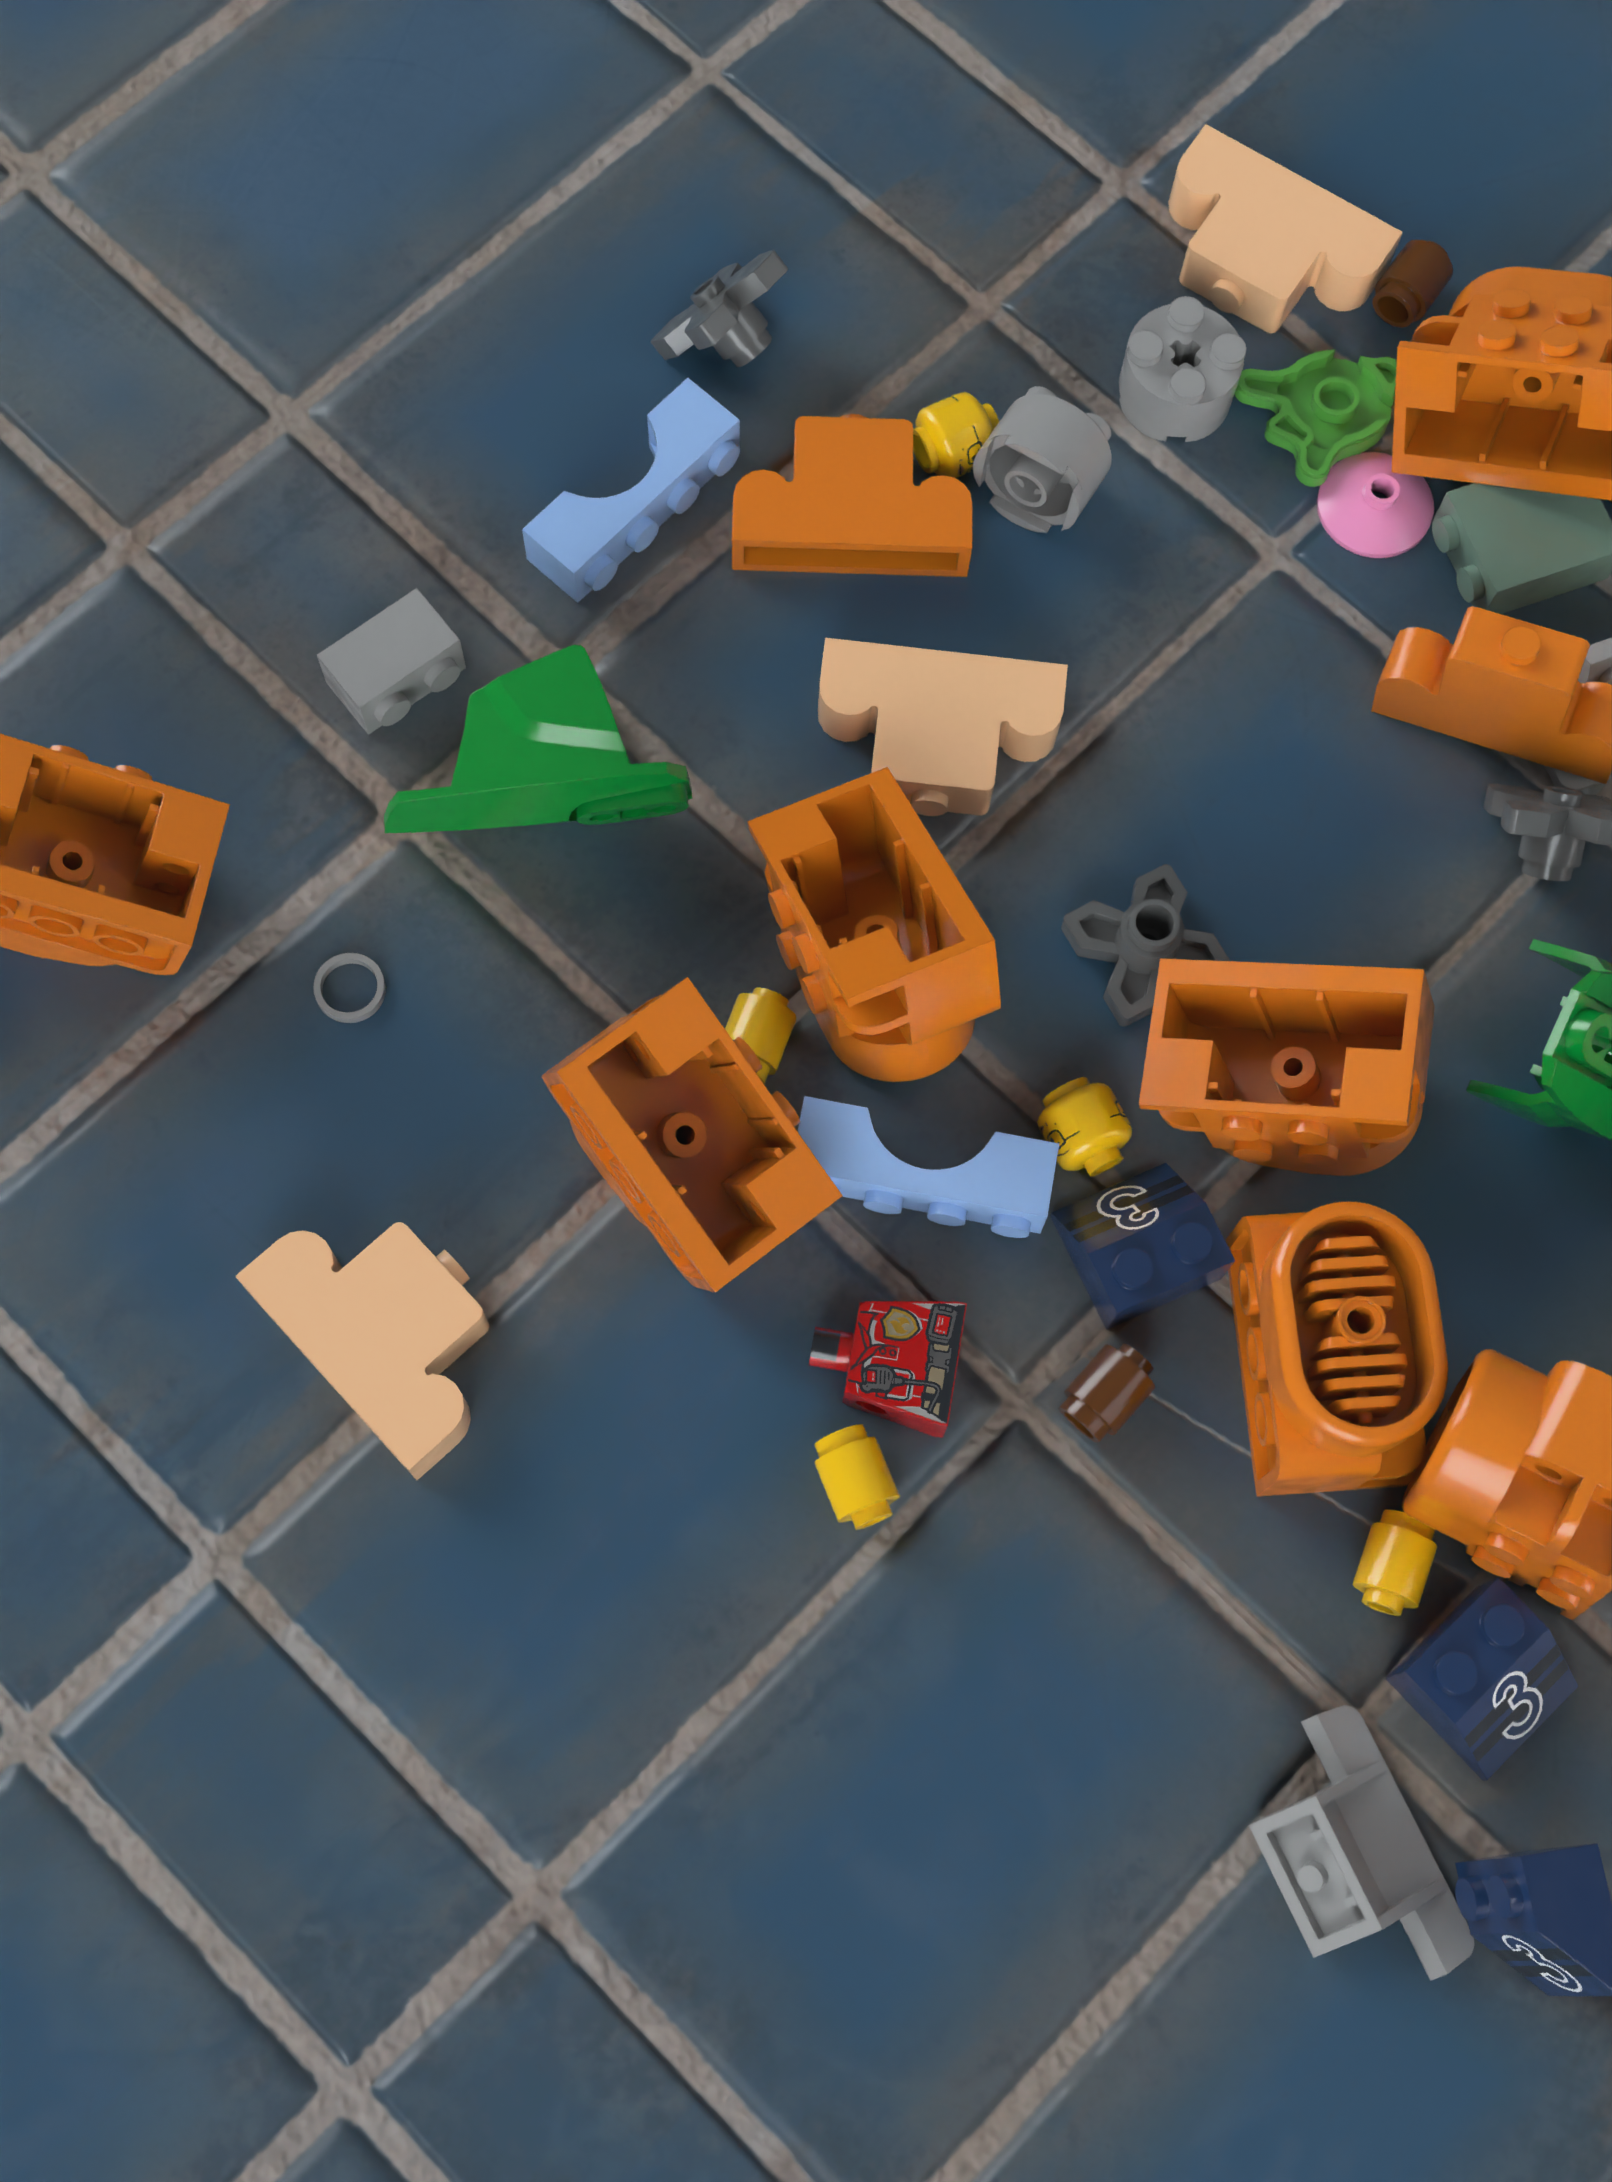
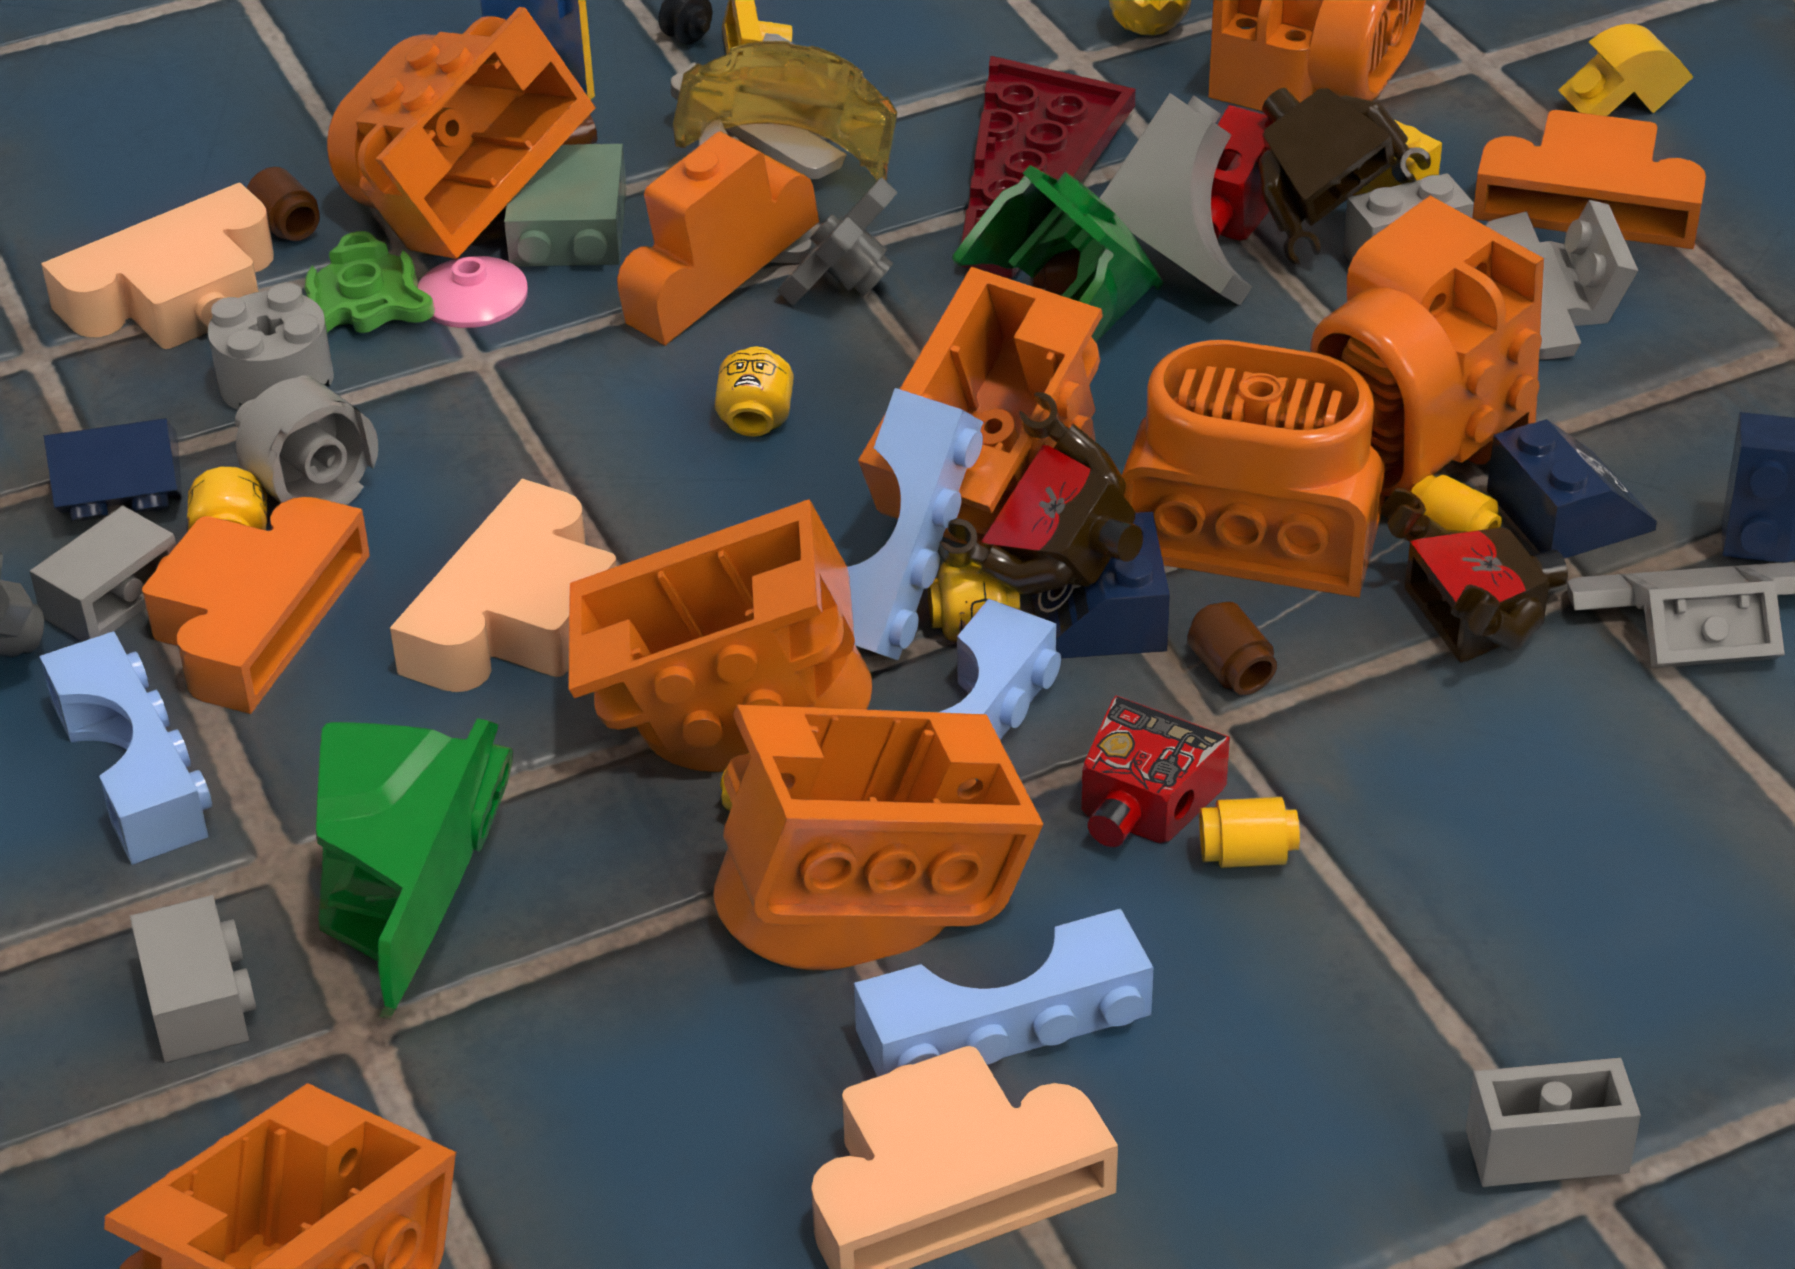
camera: 65 degrees left, 30 degrees down
(339, 960) = (545, 1145): light grey piece -> none
(561, 1846) = (1552, 1122): none -> light grey brick
(625, 1384) = (1086, 985): none -> light blue arch
(830, 374) = (100, 575): none -> light grey brick
(972, 318) = (113, 468): none -> dark blue slope
(1138, 940) = (838, 498): dark grey plant -> none
(1153, 1022) = (929, 454): none -> light blue arch
(1159, 1175) = (1058, 520): none -> dark brown torso
(1288, 1613) = (1474, 584): none -> dark brown torso
(1306, 820) = (754, 391): none -> yellow head

